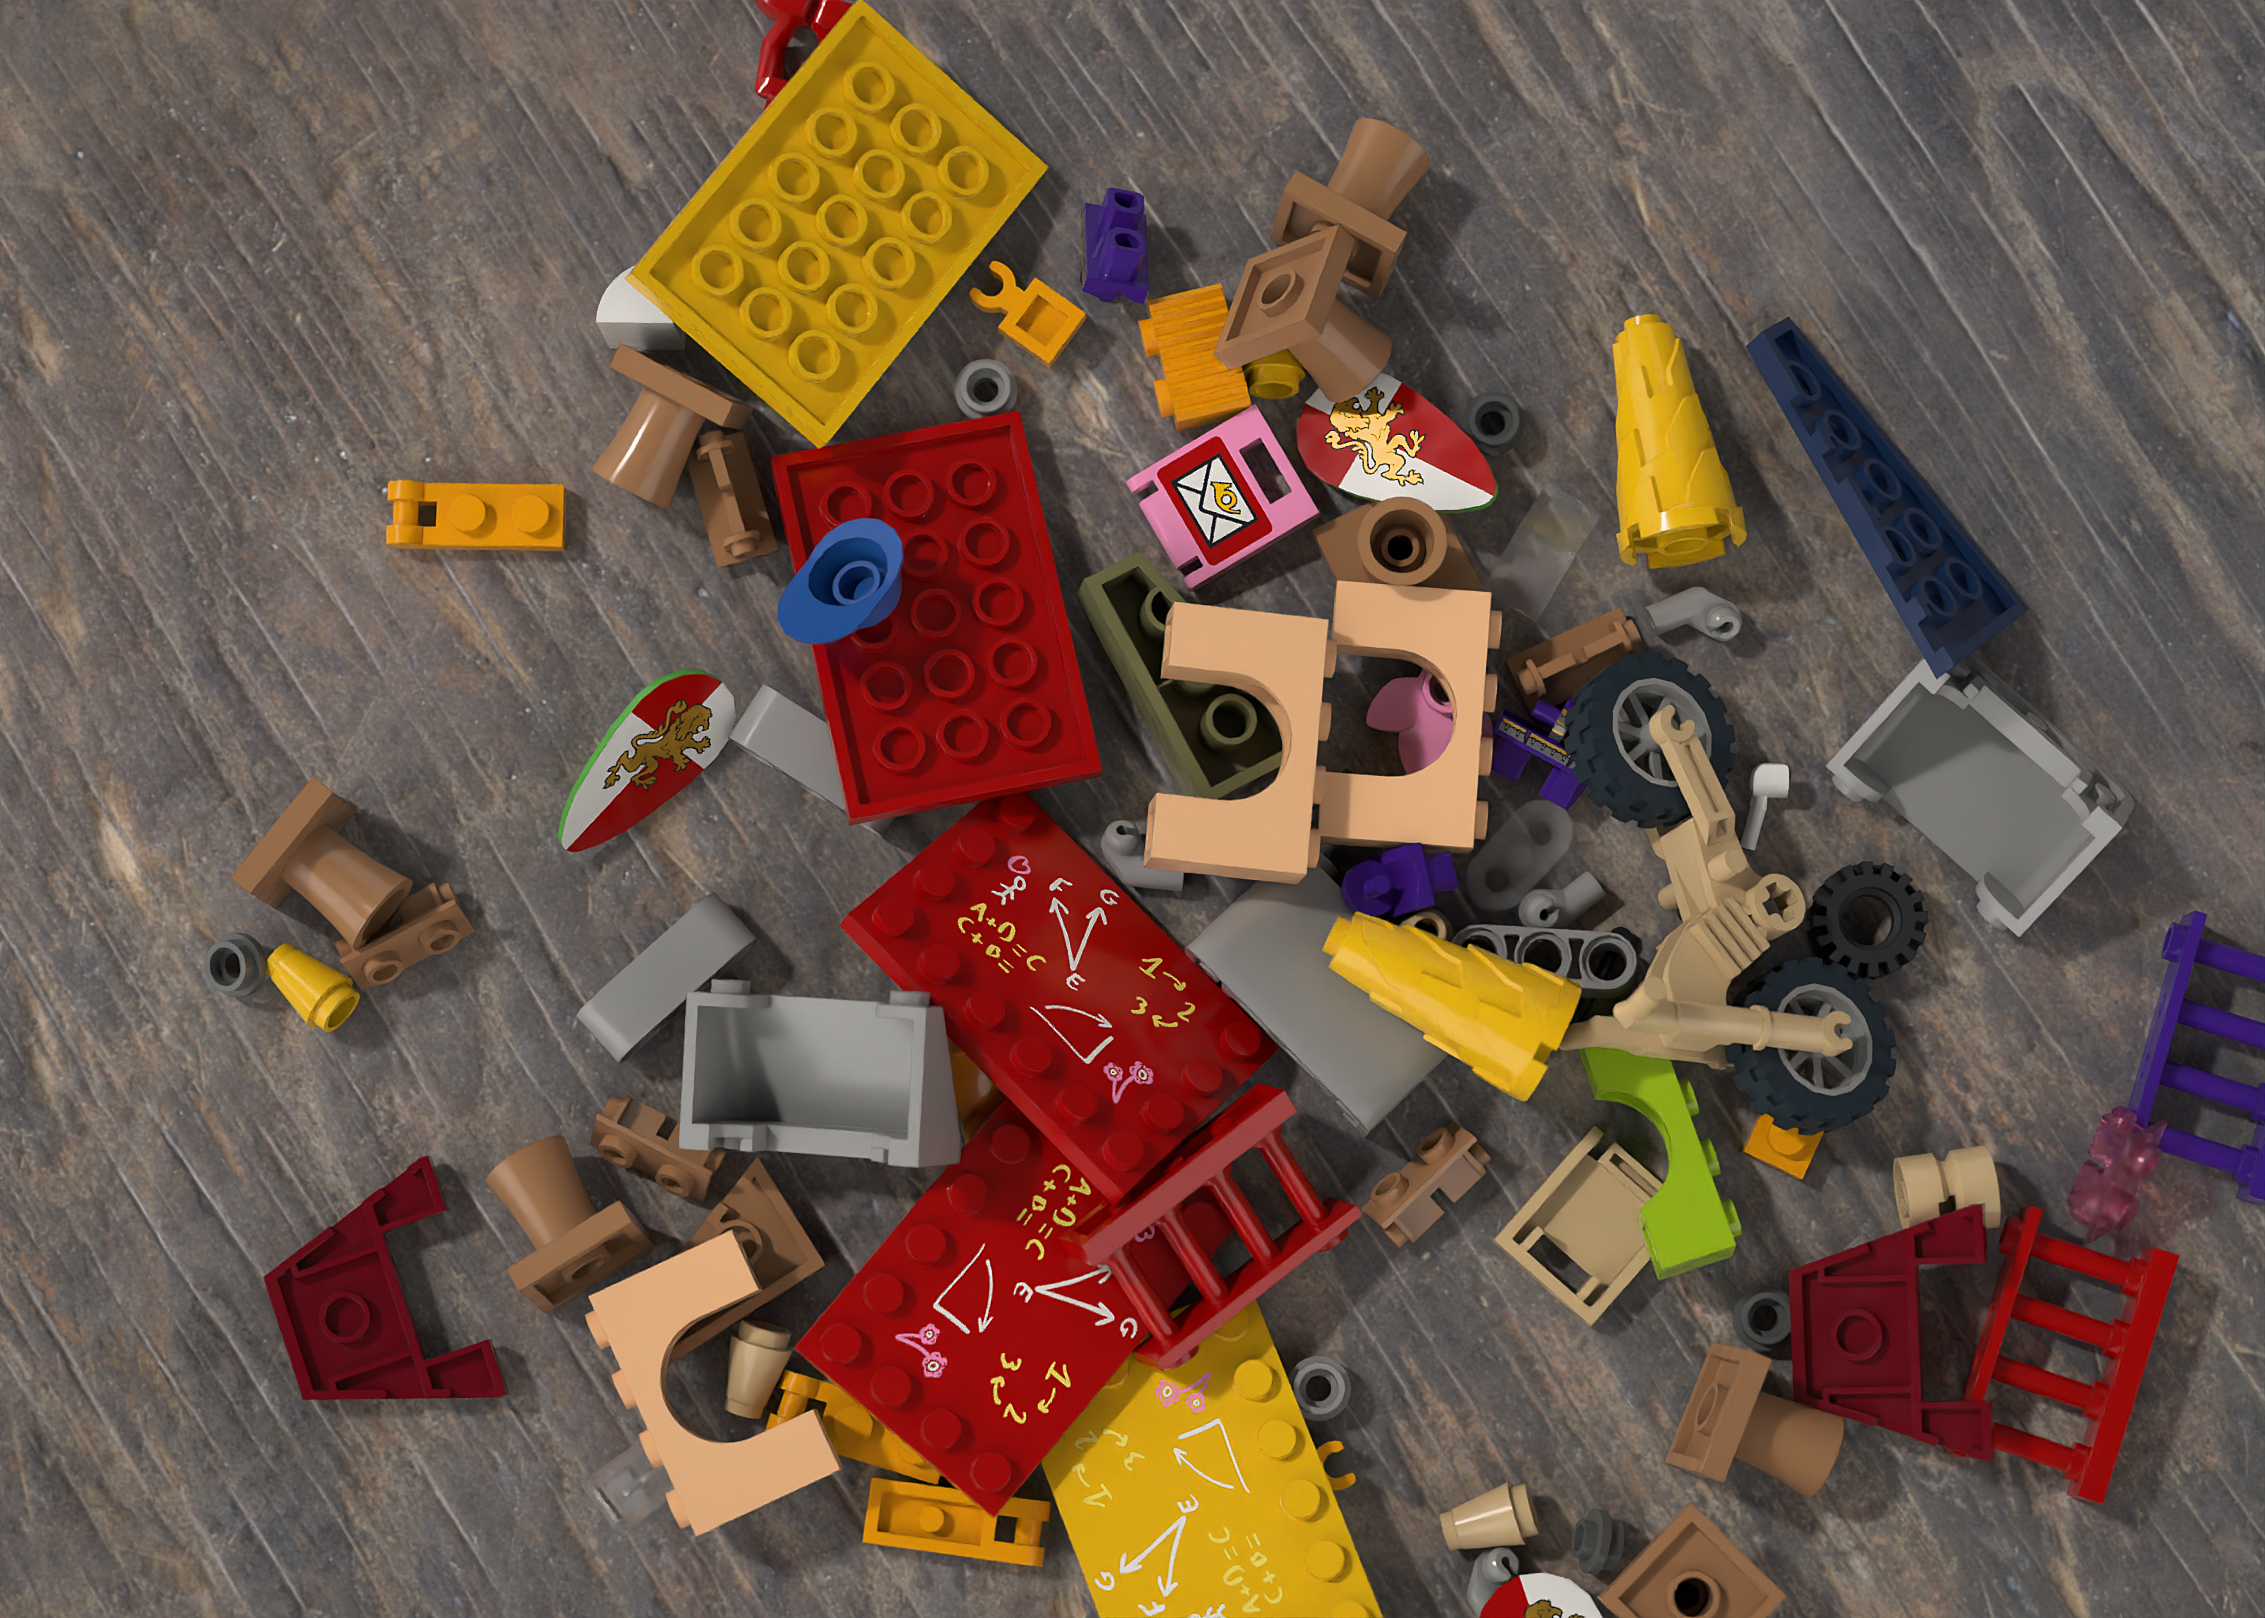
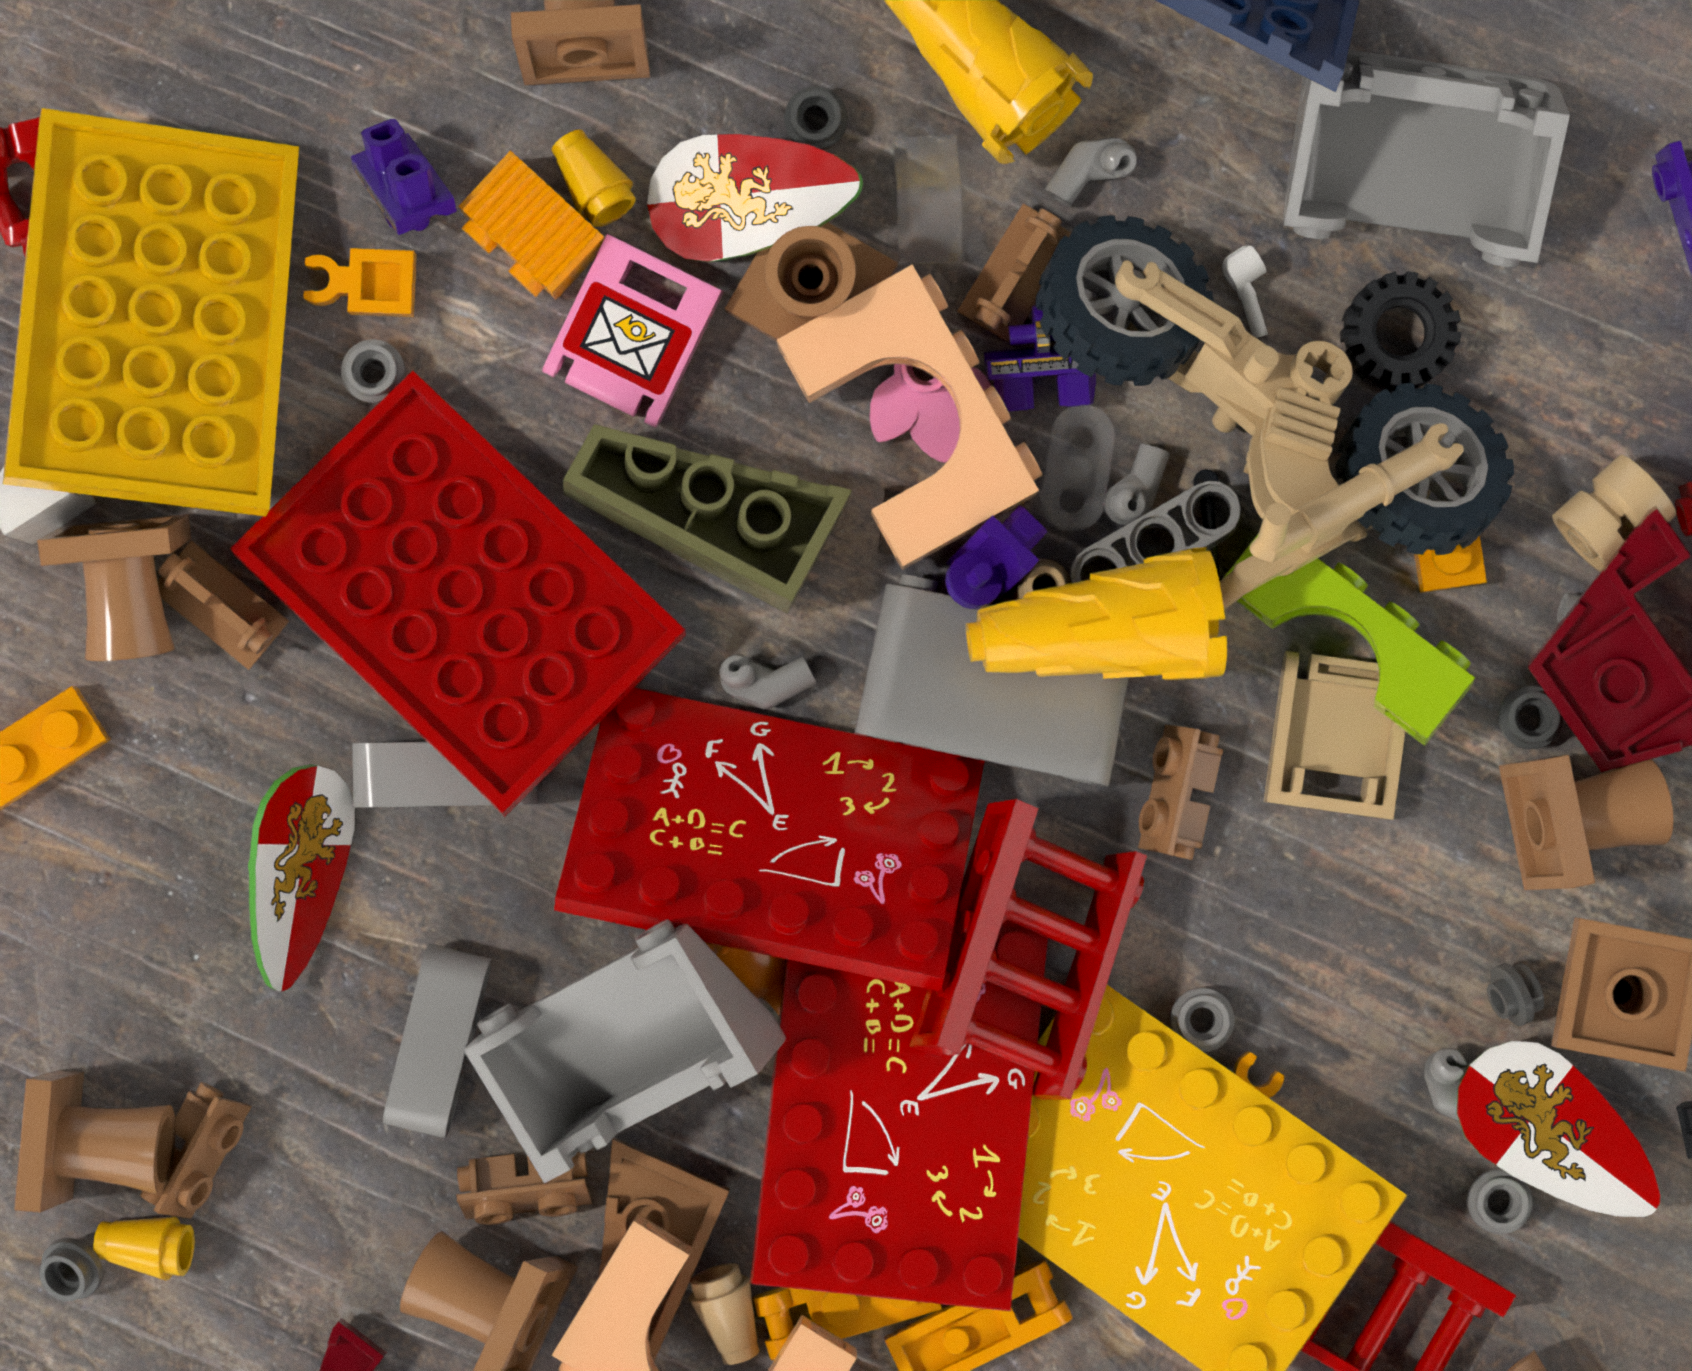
camera: 30 degrees left, 5 degrees up
(844, 584) = (364, 619): blue piece -> none
(1283, 666) = (782, 443): light nougat arch -> none
(1292, 305) = (581, 130): medium nougat plant -> none
(1492, 1519) = (1416, 1032): tan cone -> none

